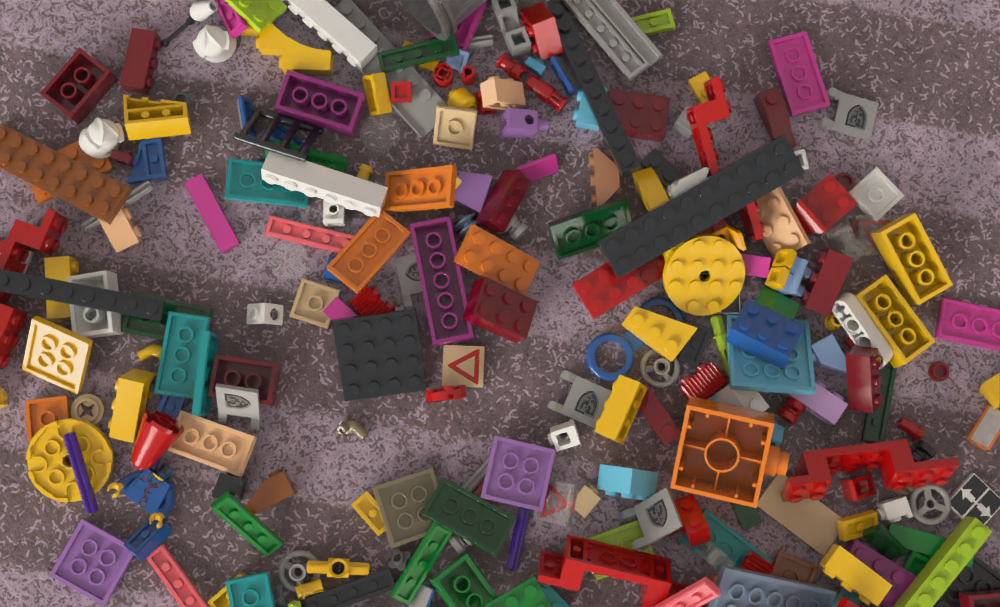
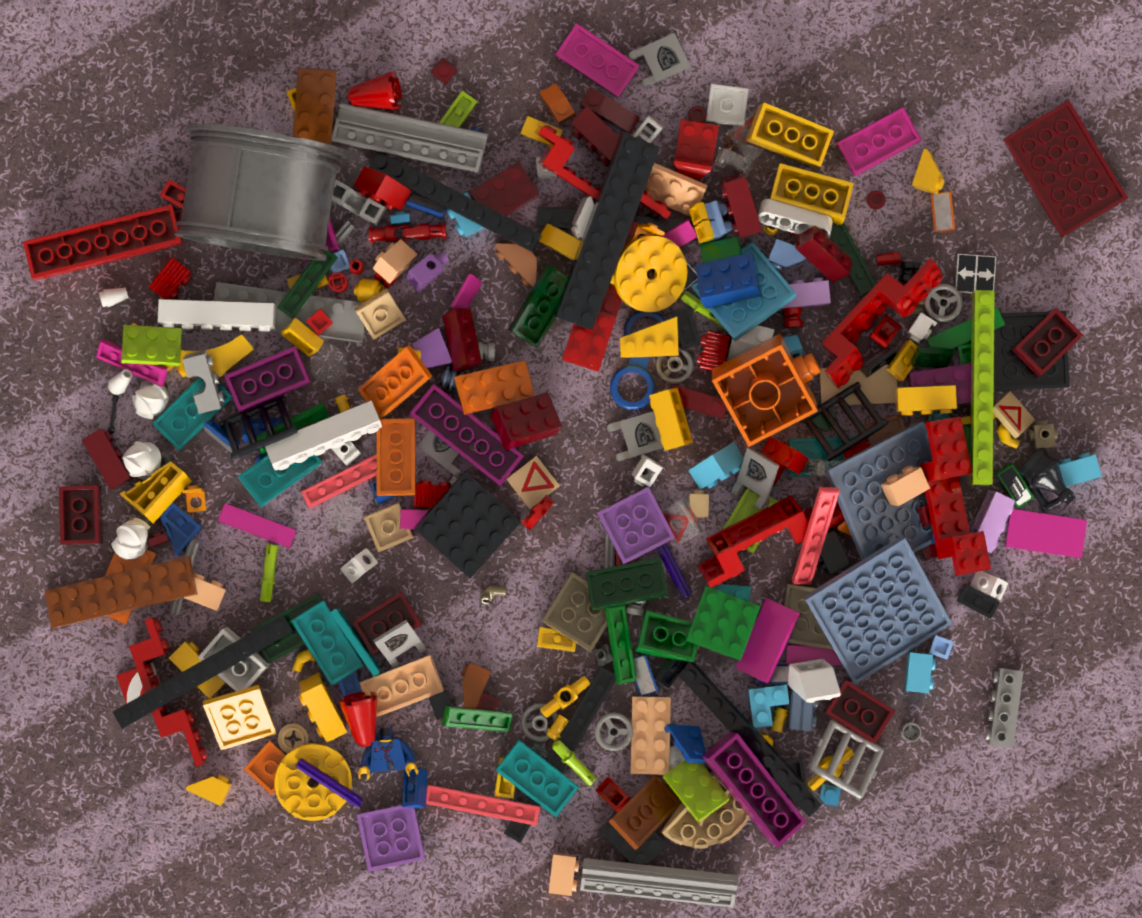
camera: 30 degrees left, 5 degrees up
(165, 82) = (142, 459): none -> white helmet
(183, 143) = (195, 491): none -> light orange bracket
(187, 258) = (268, 573): none -> lime axle
(248, 78) = (181, 419): none -> teal tile
(270, 517) = (487, 702): none -> dark red plate
(276, 47) = (201, 365): none -> light grey arch
(738, 82) = (557, 104): none -> orange slope
(749, 125) = (595, 134): none -> dark red brick
(755, 556) = (847, 443): none -> black bar
(836, 507) = (879, 360): none -> black slope

